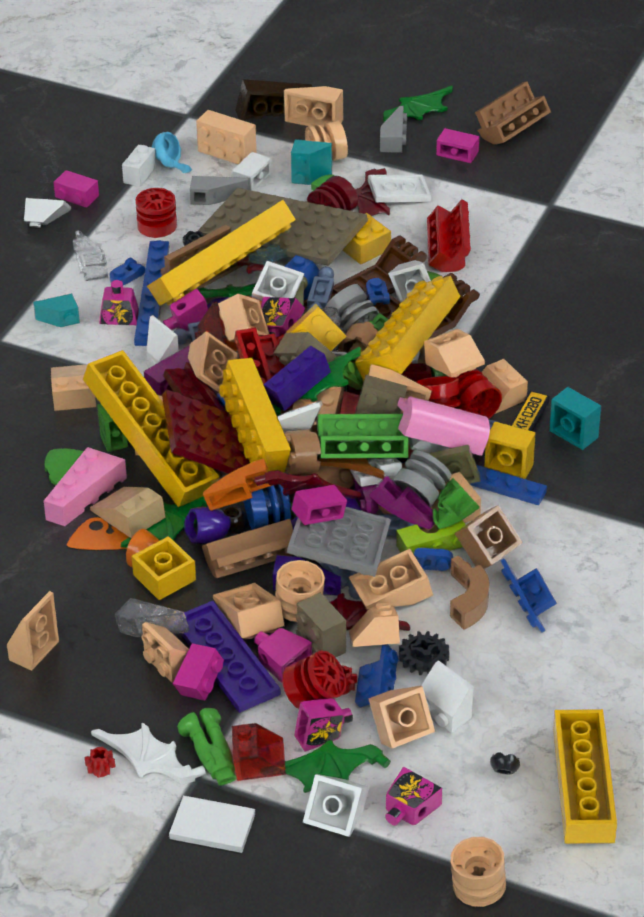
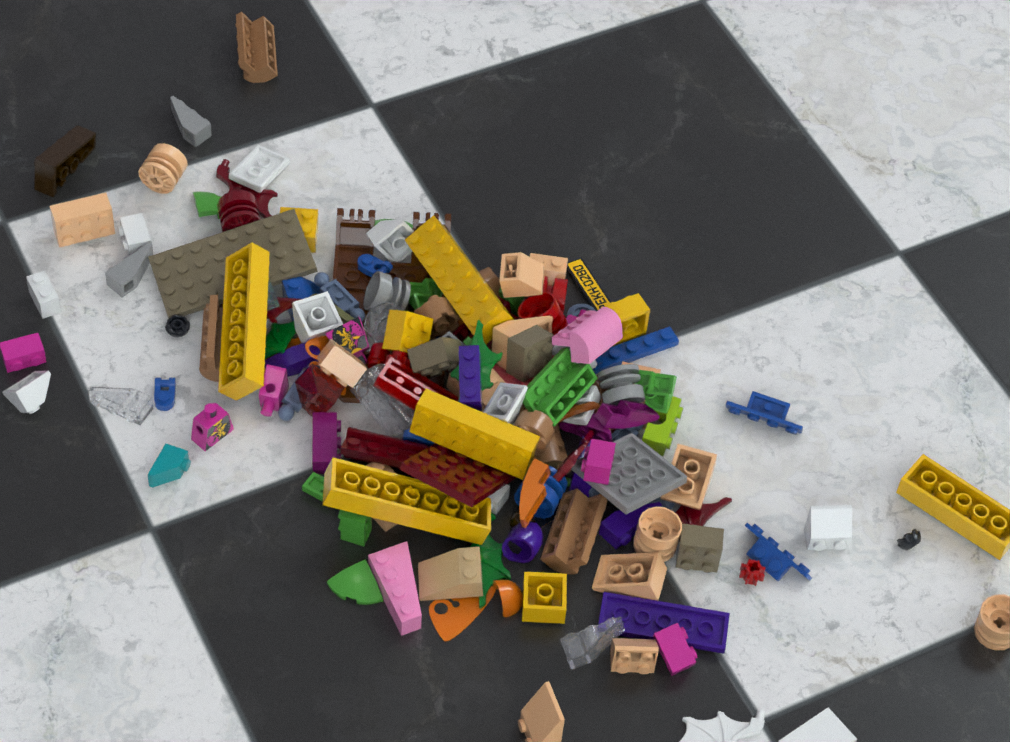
camera: 55 degrees left, 10 degrees up
(69, 388) = (268, 515): light nougat slope -> none
(148, 304) = (207, 393): blue plate -> none
(156, 212) = (122, 324): red wheel -> none
(161, 342) = (293, 433): white slope -> none
(169, 151) = (43, 260): medium azure hair -> none
(209, 359) = (359, 413): light nougat slope -> none
(216, 756) = (757, 696): bright green piece -> none
(257, 752) = (780, 670): clear red slope -> none
(281, 650) = (693, 587): dark pink torso -> none
(310, 161) = (173, 194): teal slope -> none
(313, 105) = (110, 143): light nougat slope -> none
(314, 678) = (754, 588): red wheel -> none
(320, 722) = (789, 604): dark pink torso -> none
(333, 762) = (818, 637): green animal -> none
(335, 804) = (869, 657): white slope -> none
(376, 627) = (731, 514): light nougat slope -> none
(401, 715) = (828, 564): light nougat slope -> none
(411, 798) = (895, 612): torso -> none
(421, 104) = (169, 84): green animal -> none
(423, 652) = (777, 508): black gear -> none
(434, 558) = (686, 436): blue plate -> none
(448, 237) = (355, 181): red brick -> none
(457, 145) = (250, 101): dark pink brick -> none
(459, 460) = (619, 352): olive plate -> none
(472, 604) = (738, 438): medium nougat arch -> none
(488, 537) = (702, 394): medium nougat brick -> none
(575, 418) = (629, 262): teal brick -> none

